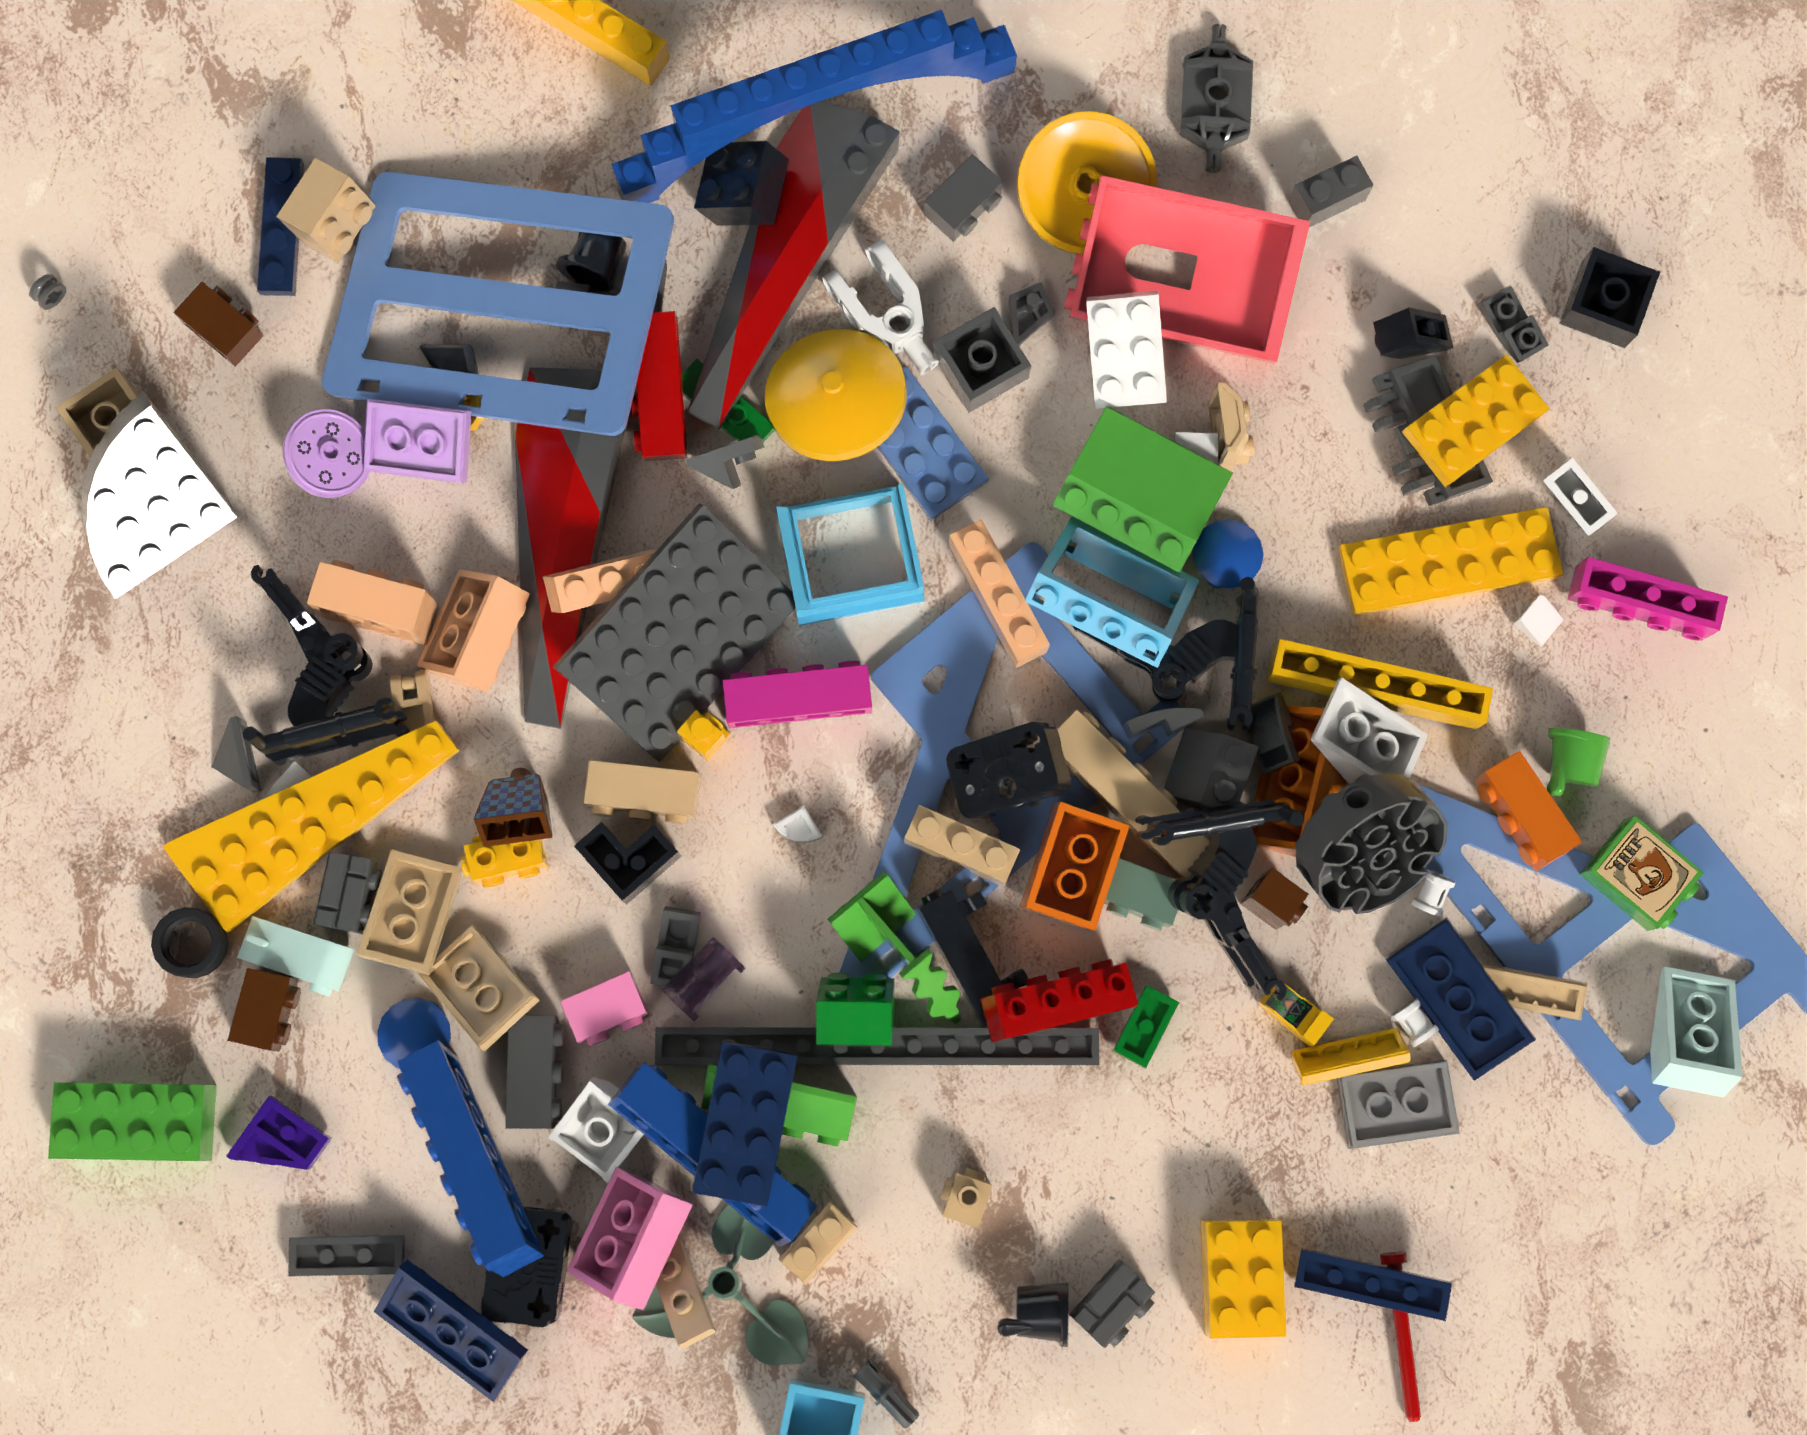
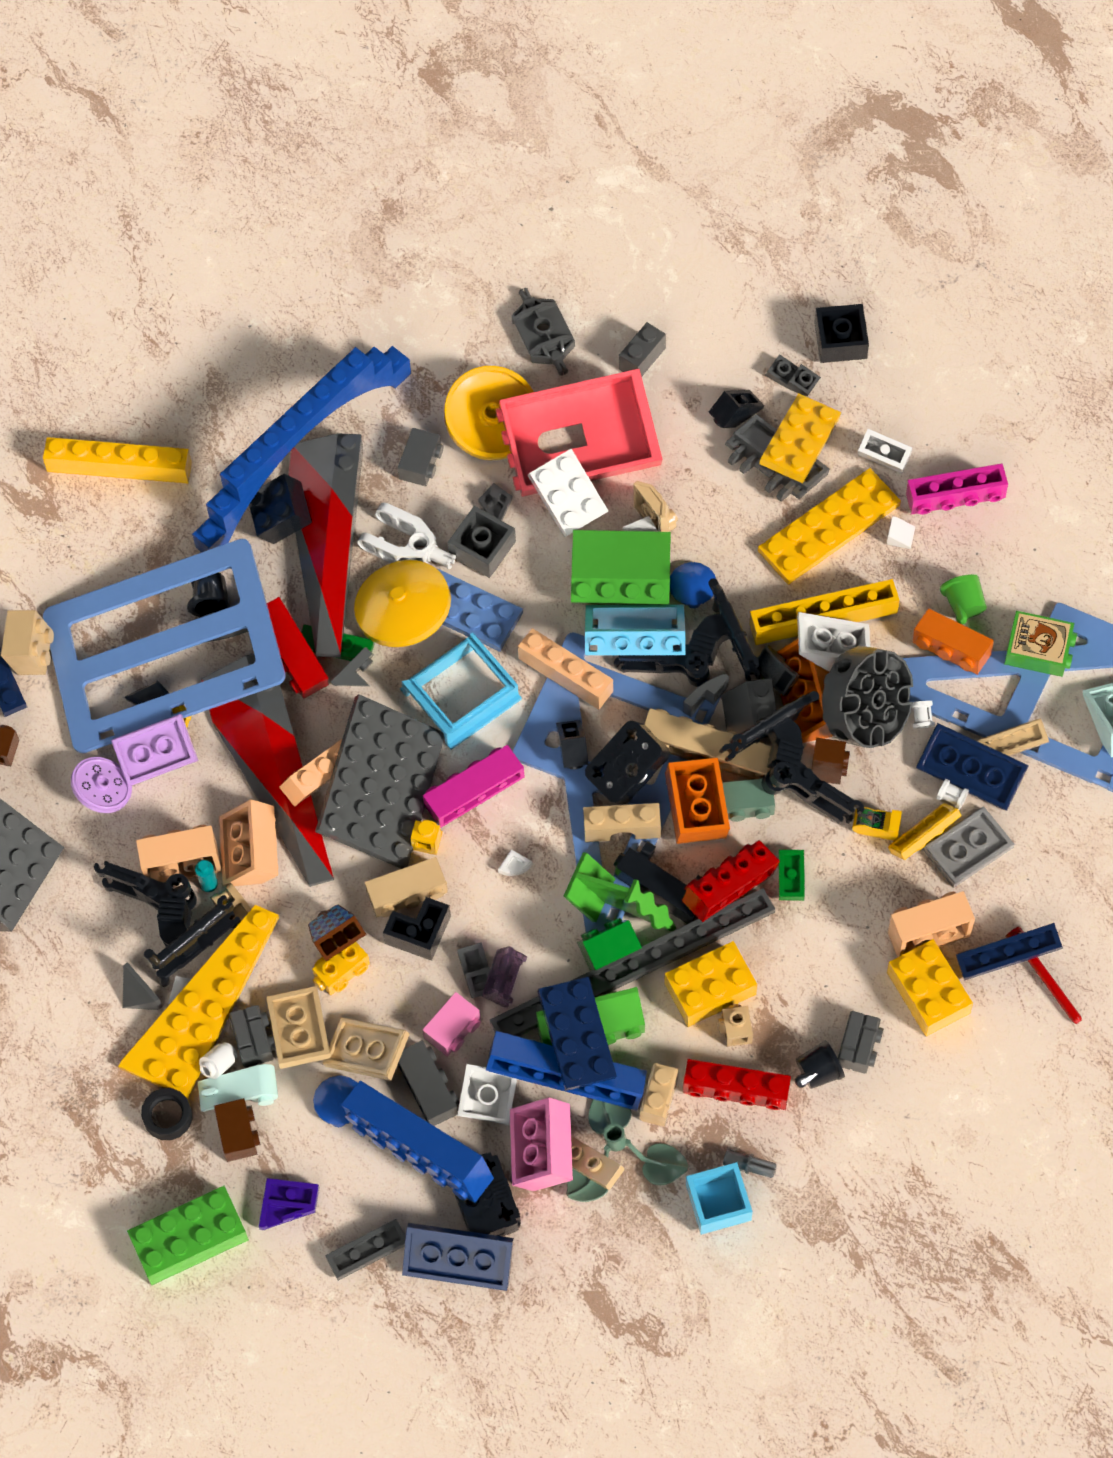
camera: 20 degrees left, 15 degrees down
(286, 905) = (217, 1060): none -> white brick
(395, 647) = (206, 876): none -> teal cylinder
(925, 1281) = (736, 1084): none -> red brick
(954, 702) = (572, 744): none -> black slope
(962, 1125) = (710, 983): none -> yellow brick
(1289, 1195) = (942, 920): none -> light nougat brick

